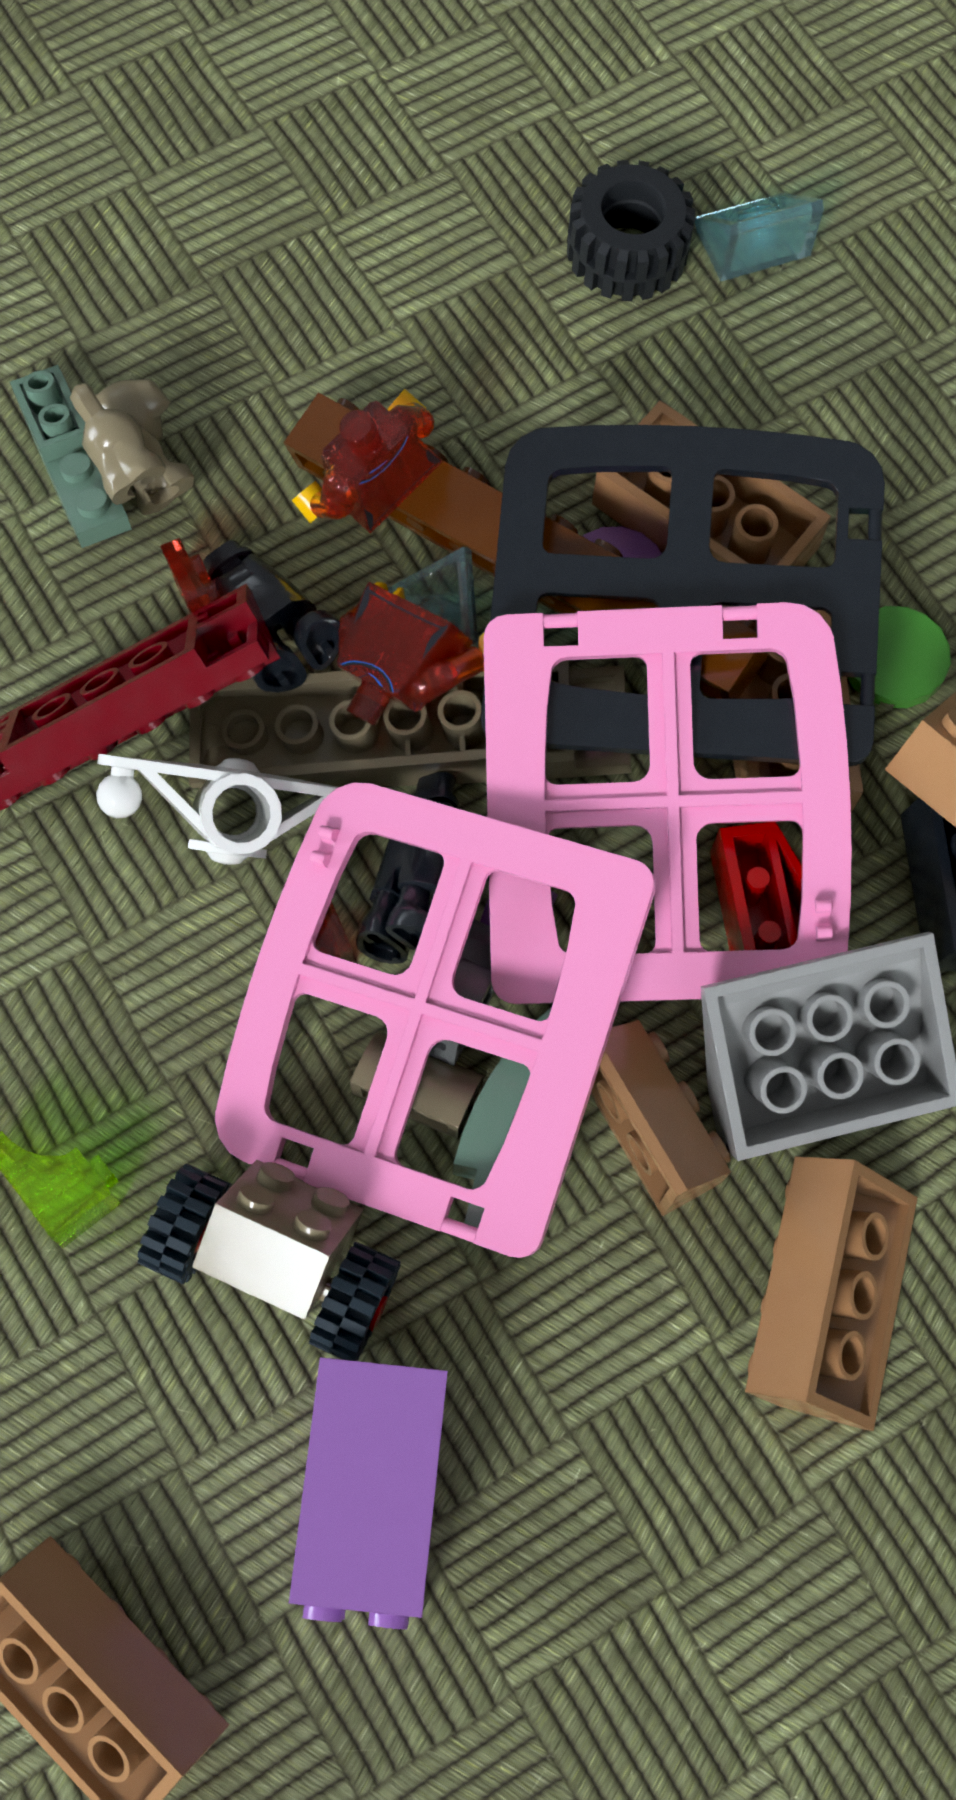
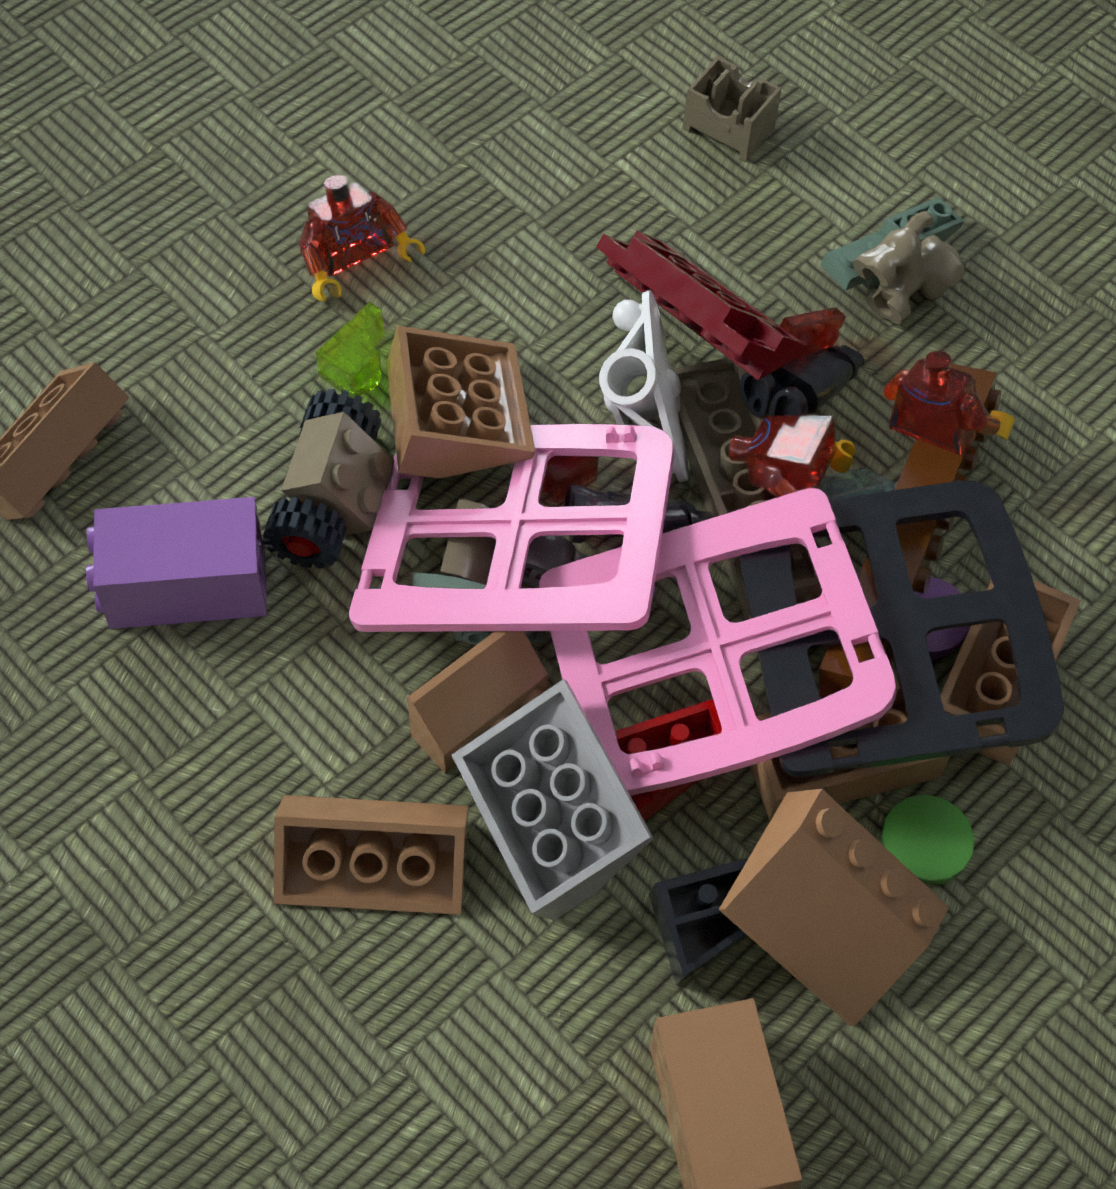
camera: 80 degrees right, 10 degrees down
(193, 1057) = (456, 403): none -> medium nougat slope

